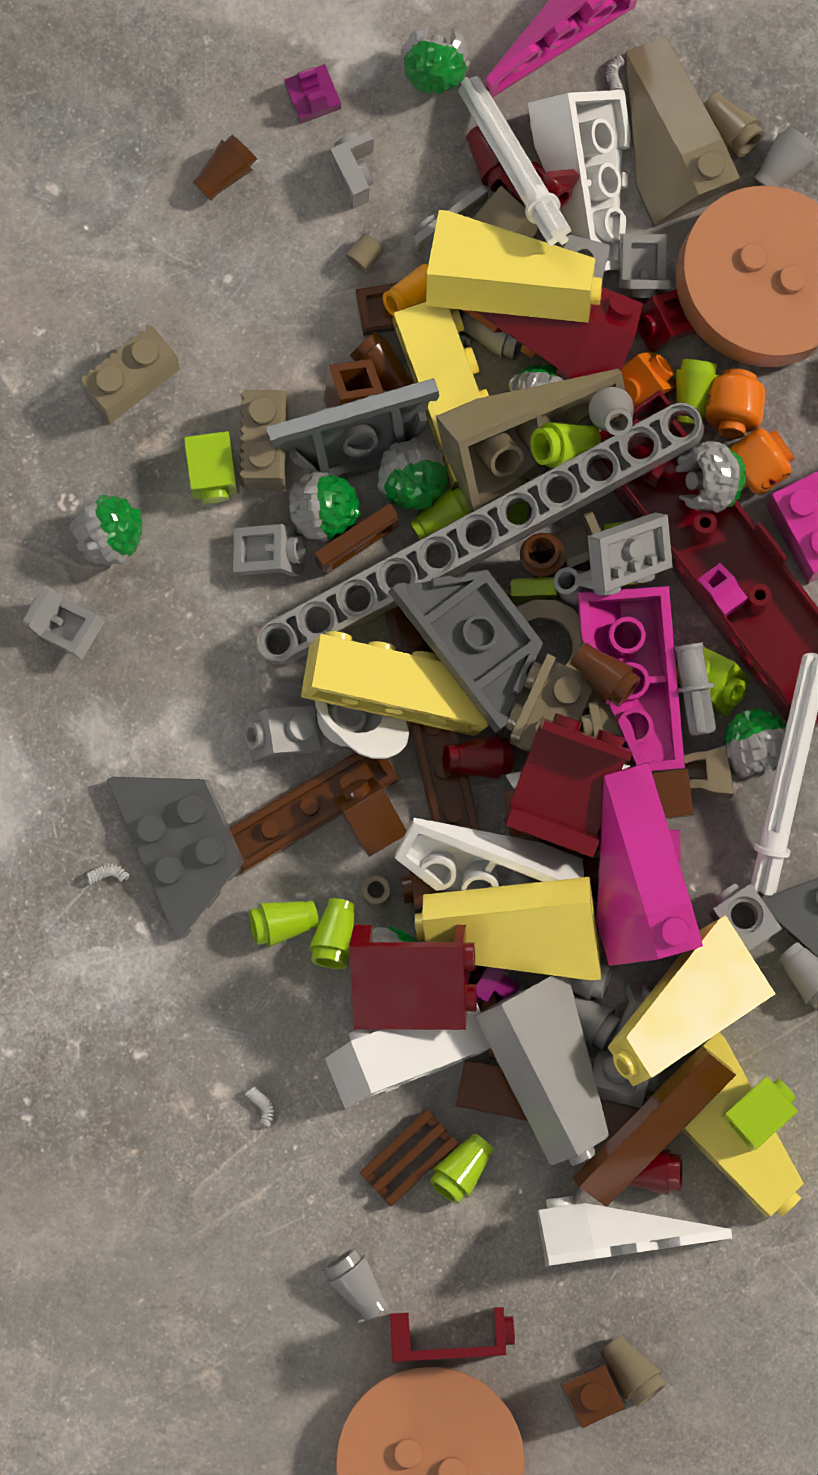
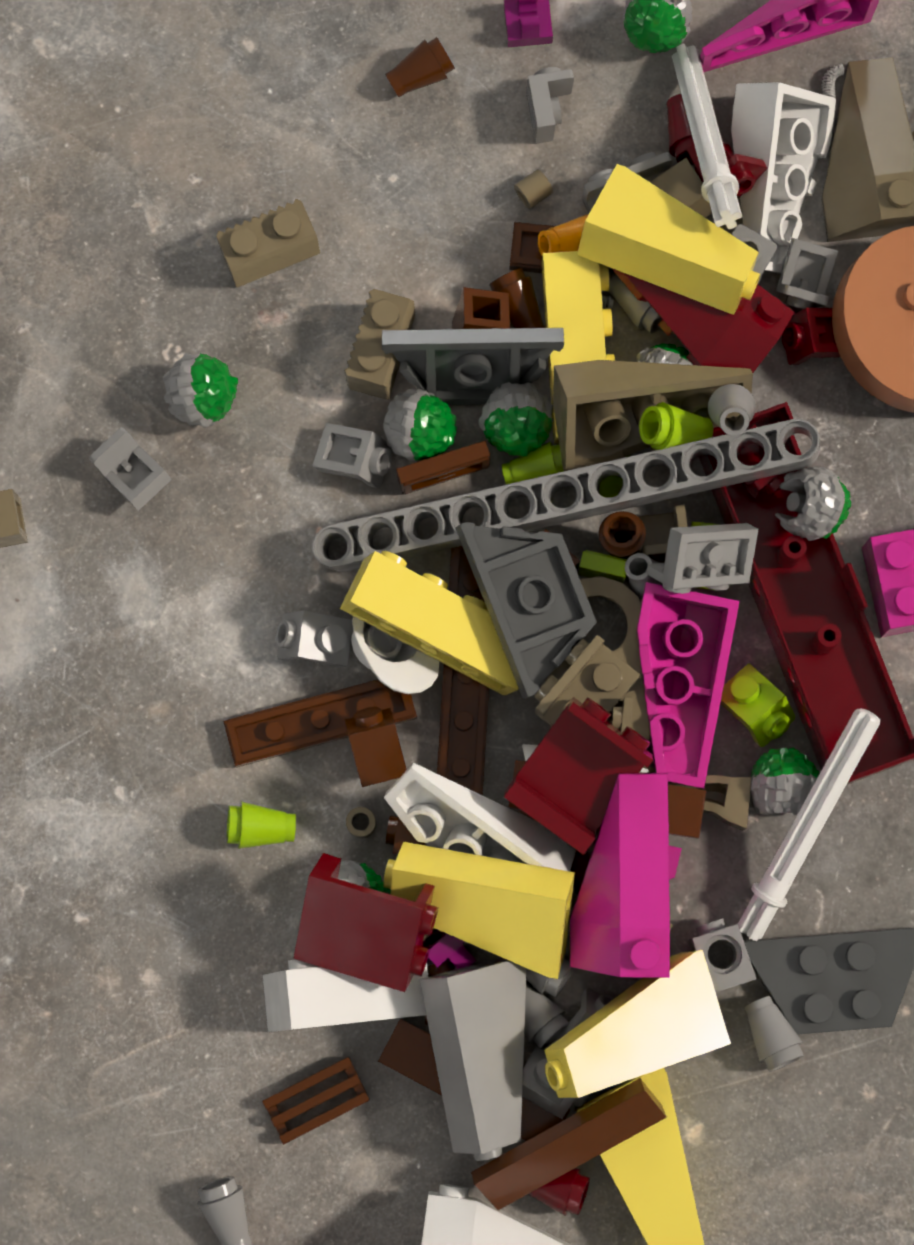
camera: 20 degrees right, 0 degrees up
(105, 872) = (98, 723): white leg -> none
(179, 842) = (181, 719): dark grey wing -> none
(211, 467) = (320, 356): lime brick -> none
(263, 1105) = (187, 1004): white leg -> none
(333, 935) = (305, 852): lime cone -> none
(461, 1169) = (365, 1127): lime cone -> none
(480, 757) = (502, 718): dark red cone -> none
(606, 675) = (651, 673): reddish brown cone -> none
(647, 375) = (778, 384): orange bracket -> none
(693, 386) = (824, 409): lime cone -> none
(695, 688) = (737, 711): light grey axle -> none
(723, 589) = (794, 619): dark pink piece -> none
(735, 403) = (859, 437): orange head -> none
(761, 1112) = (682, 1162): lime brick -> none
(765, 459) = (873, 501): orange head -> none

